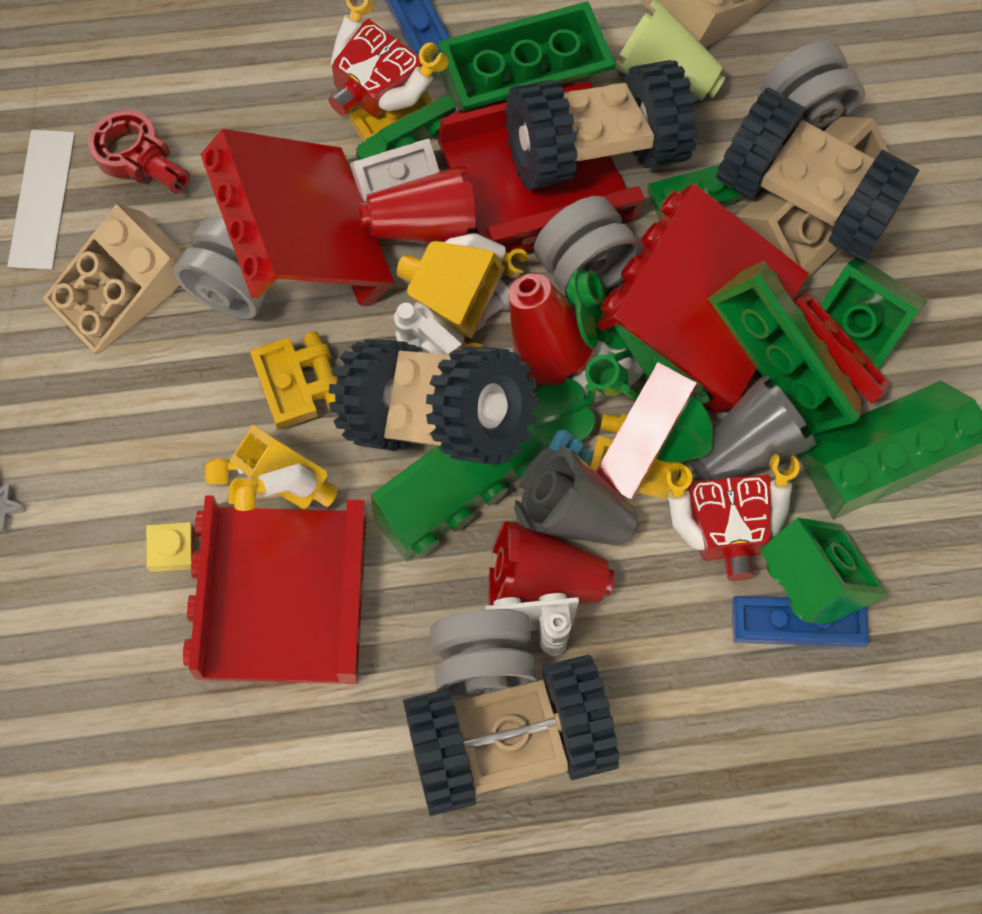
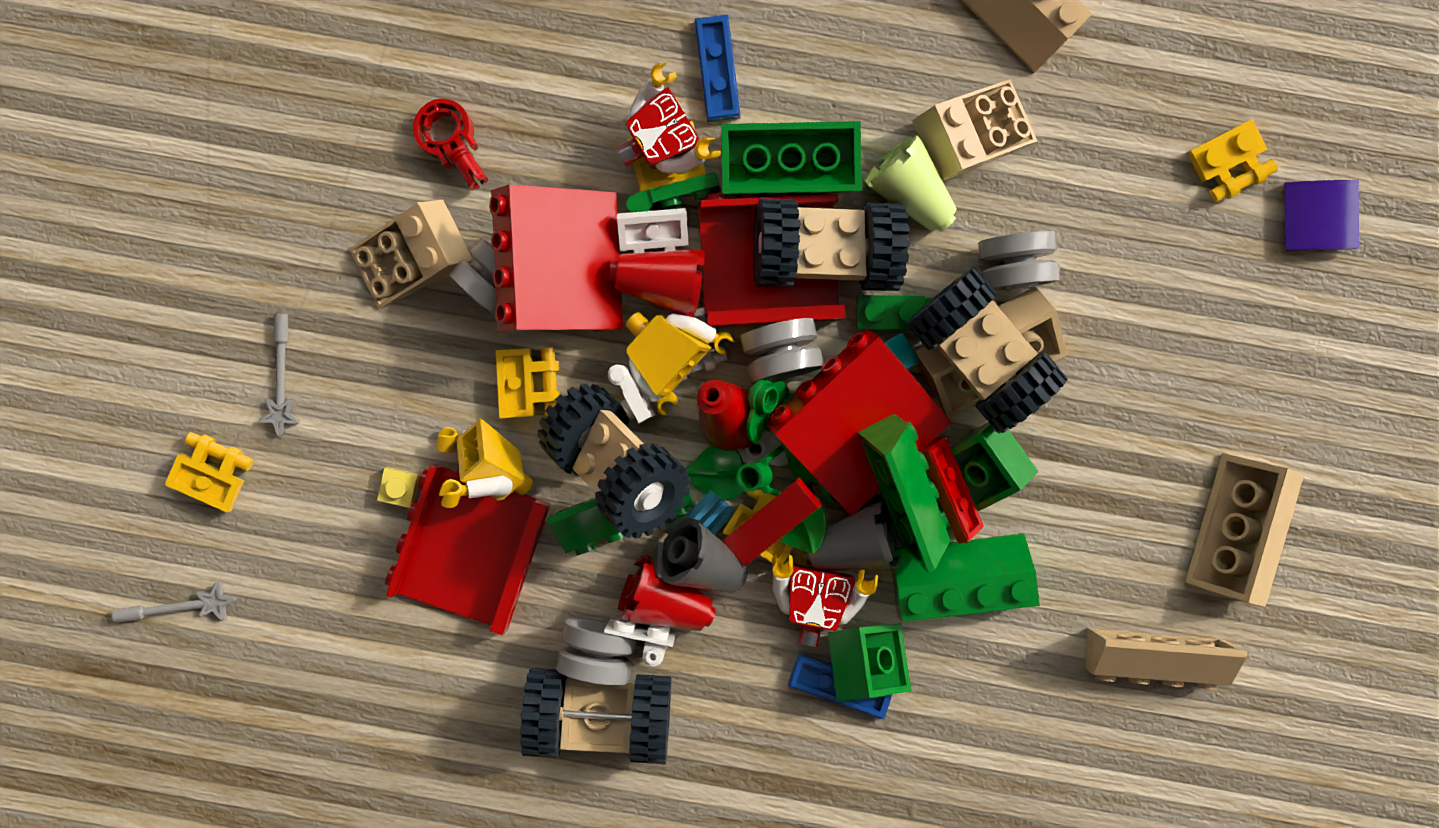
camera: 20 degrees right, 20 degrees up
(41, 199) = (367, 155): white sticker -> none

